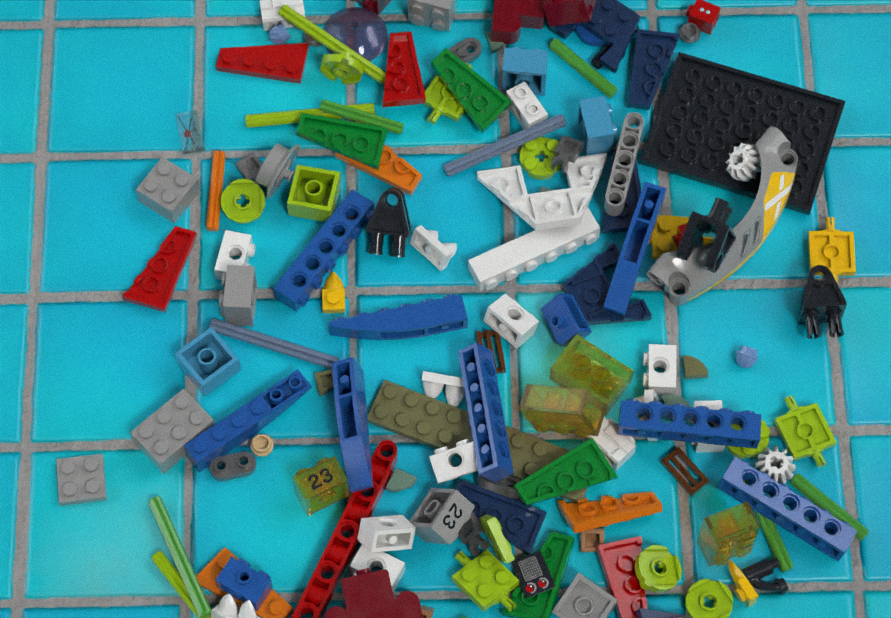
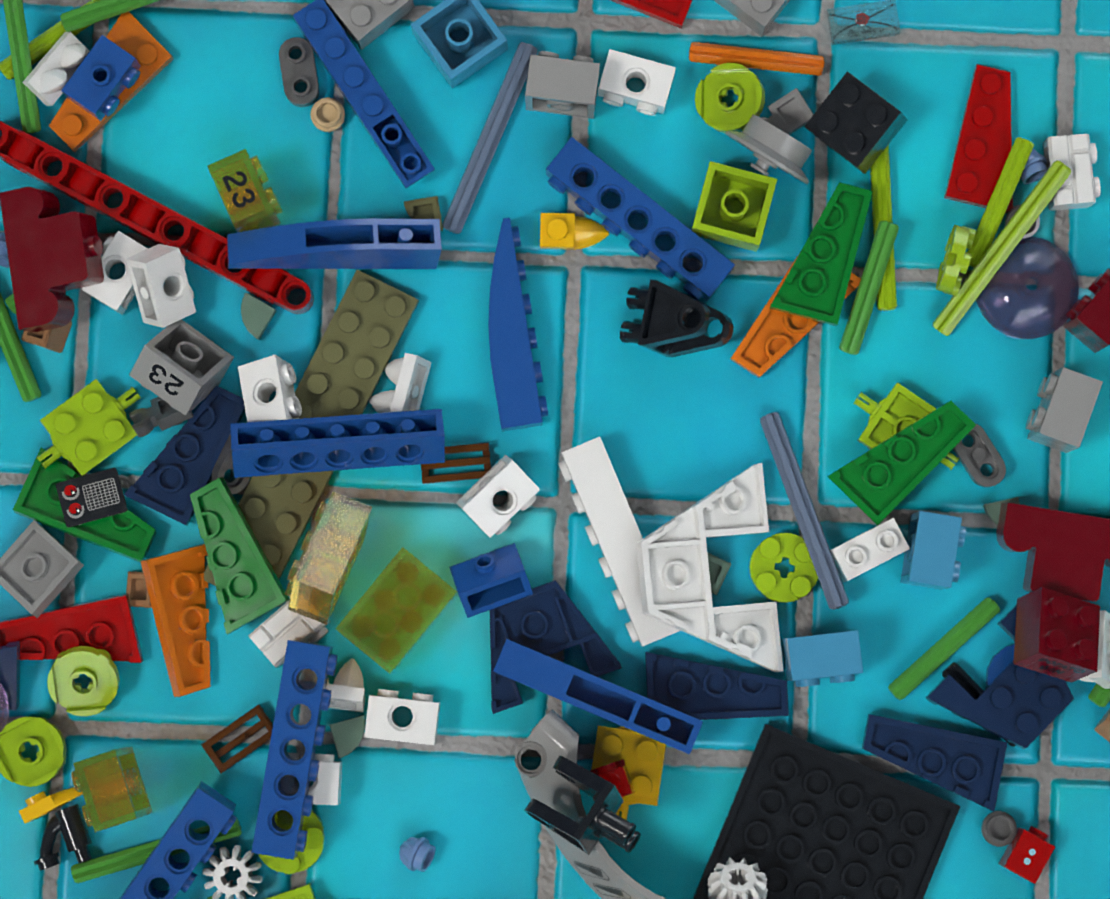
camera: 95 degrees right, 20 degrees up
(257, 126) = (856, 122): none -> black brick
(295, 43) = (1000, 198): none -> lime axle
(403, 75) = (938, 356): red wing -> none
(431, 248) = (623, 395): white tile -> none
(496, 538) = (135, 450): lime plate -> none
(565, 152) = (783, 607): flat silver plate -> none
(624, 173) = (769, 695): light grey beam -> none
(694, 368) = (406, 770): olive tile -> none

